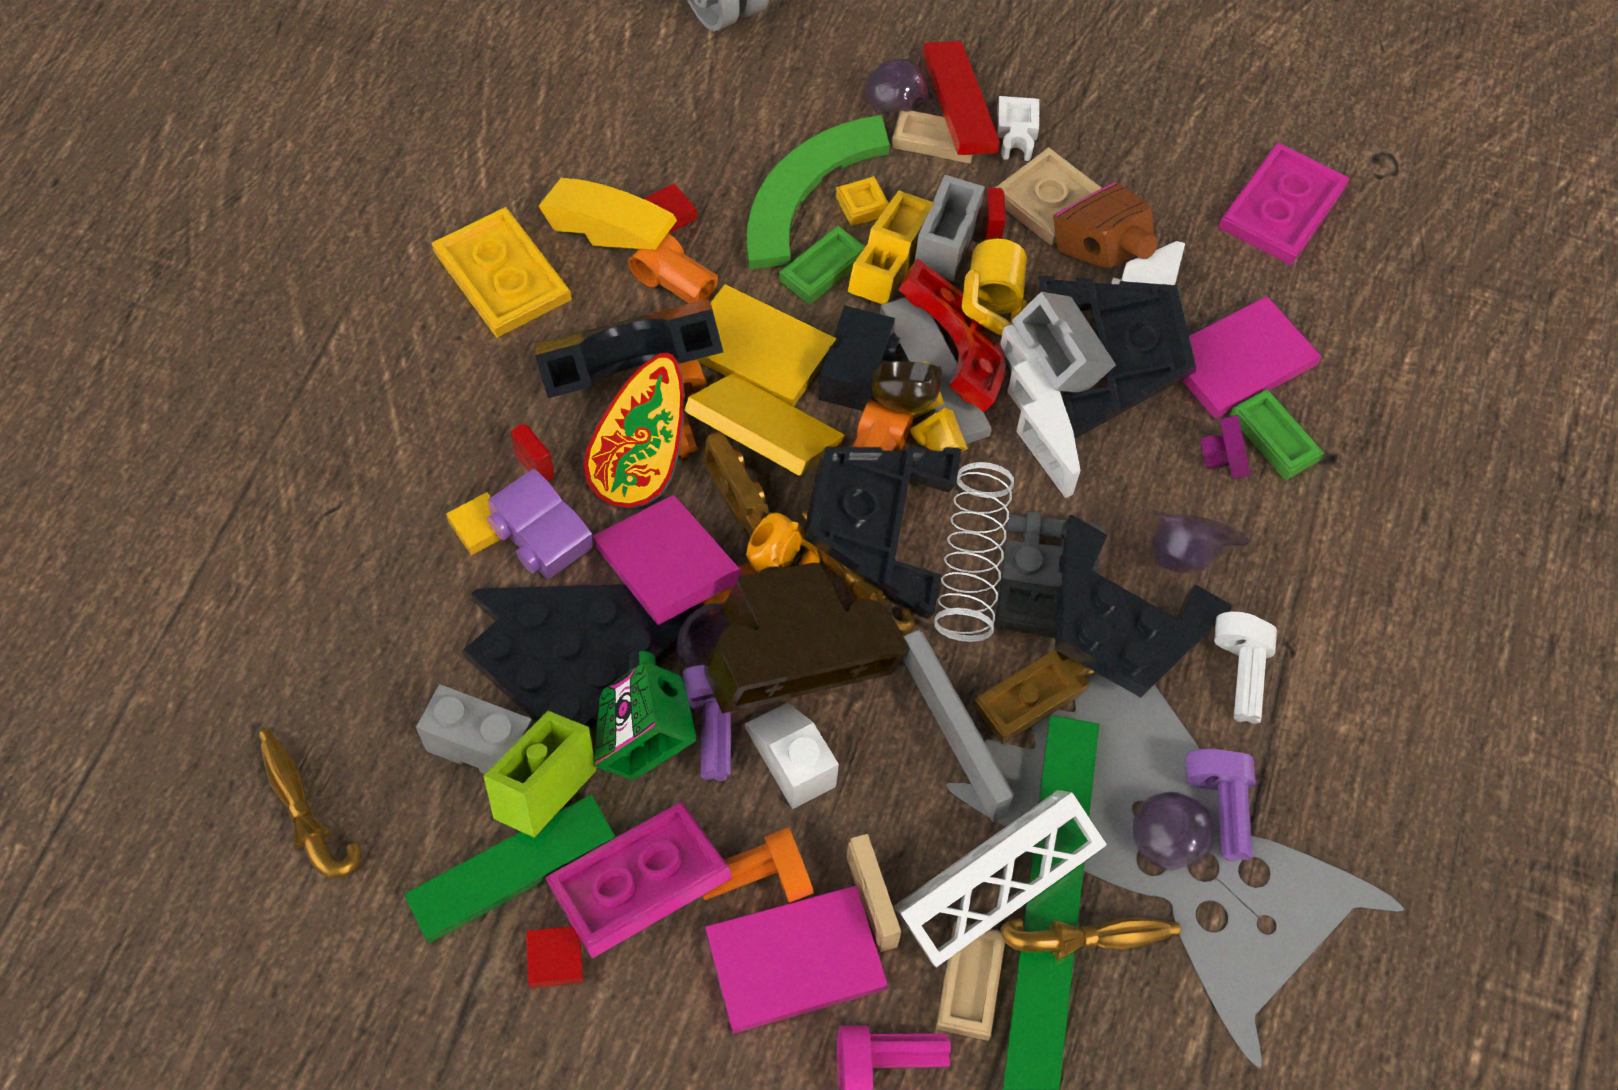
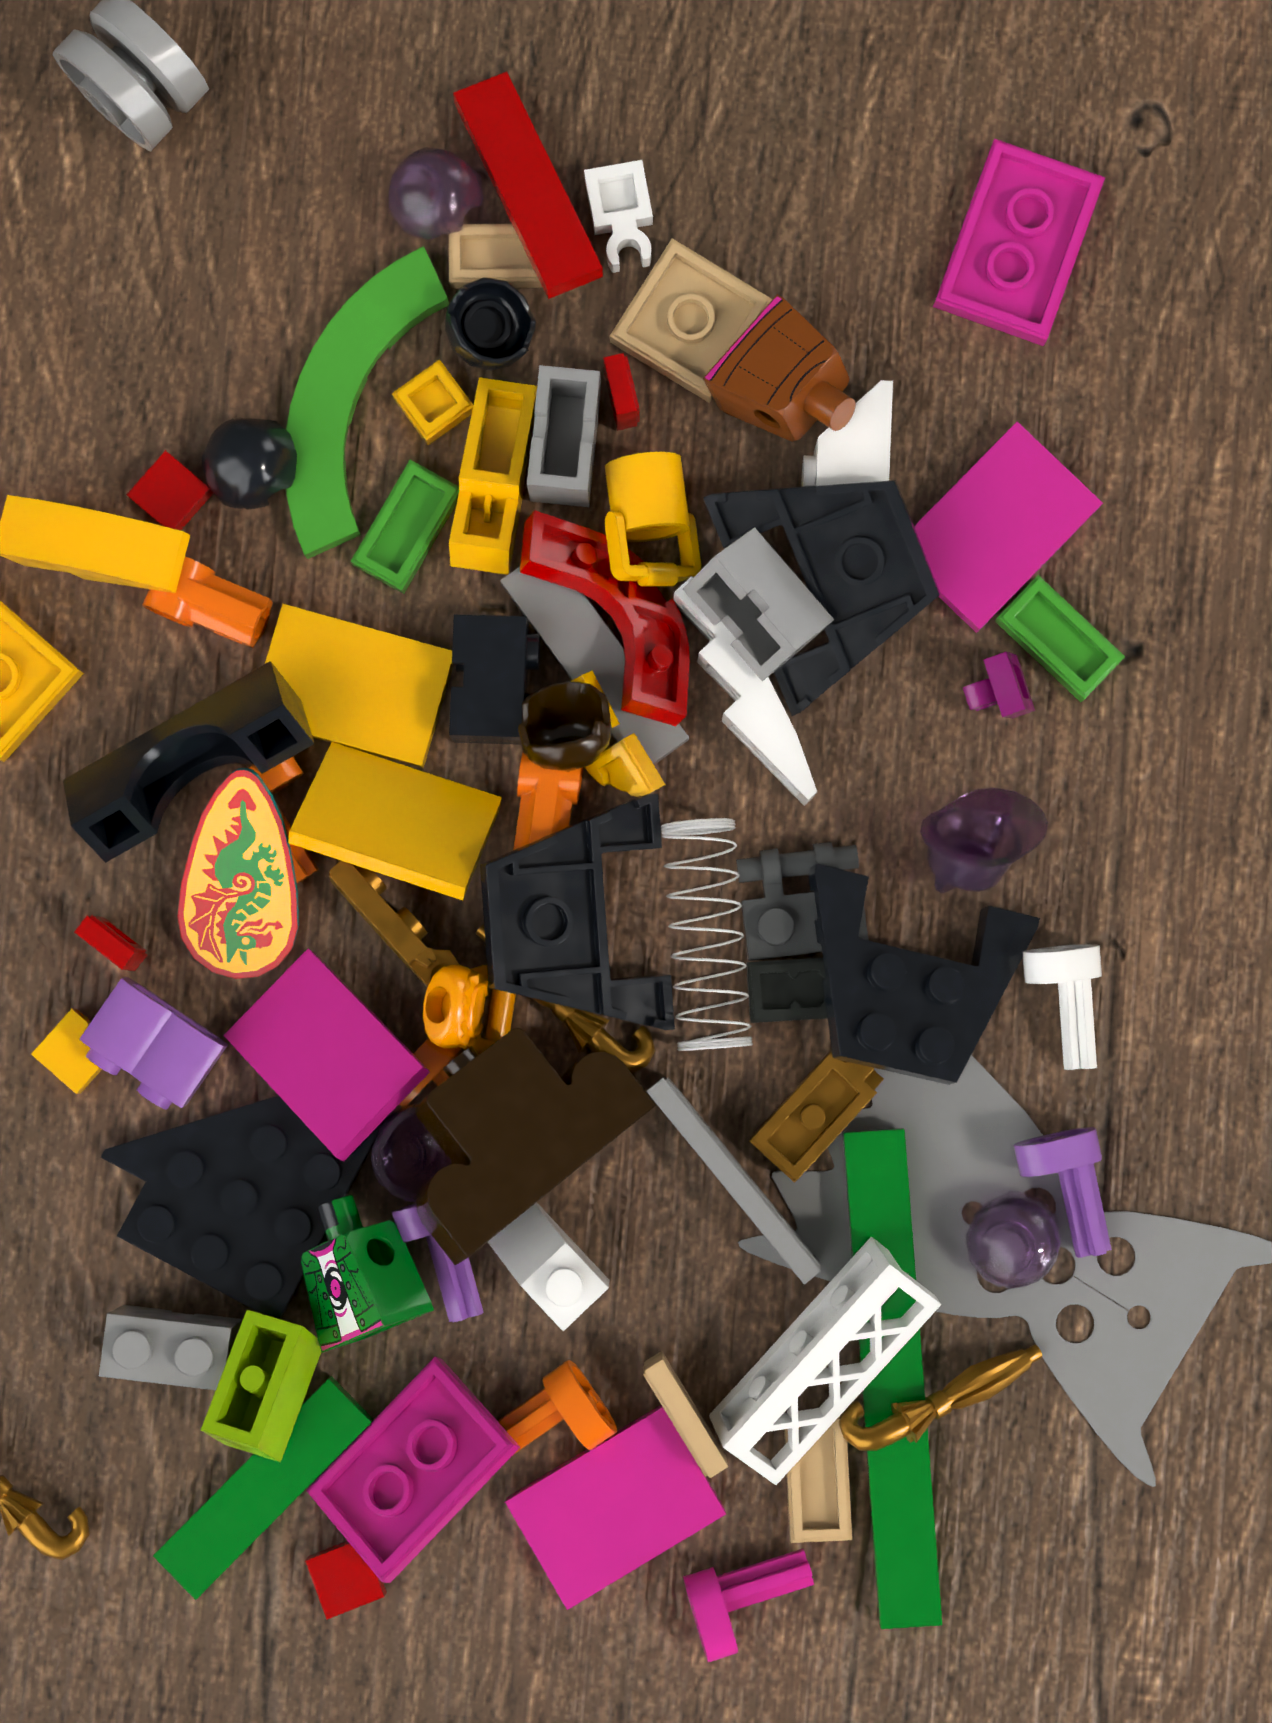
camera: 10 degrees left, 25 degrees up
(726, 198) = (249, 462): none -> black hair
(913, 161) = (489, 324): none -> black hair

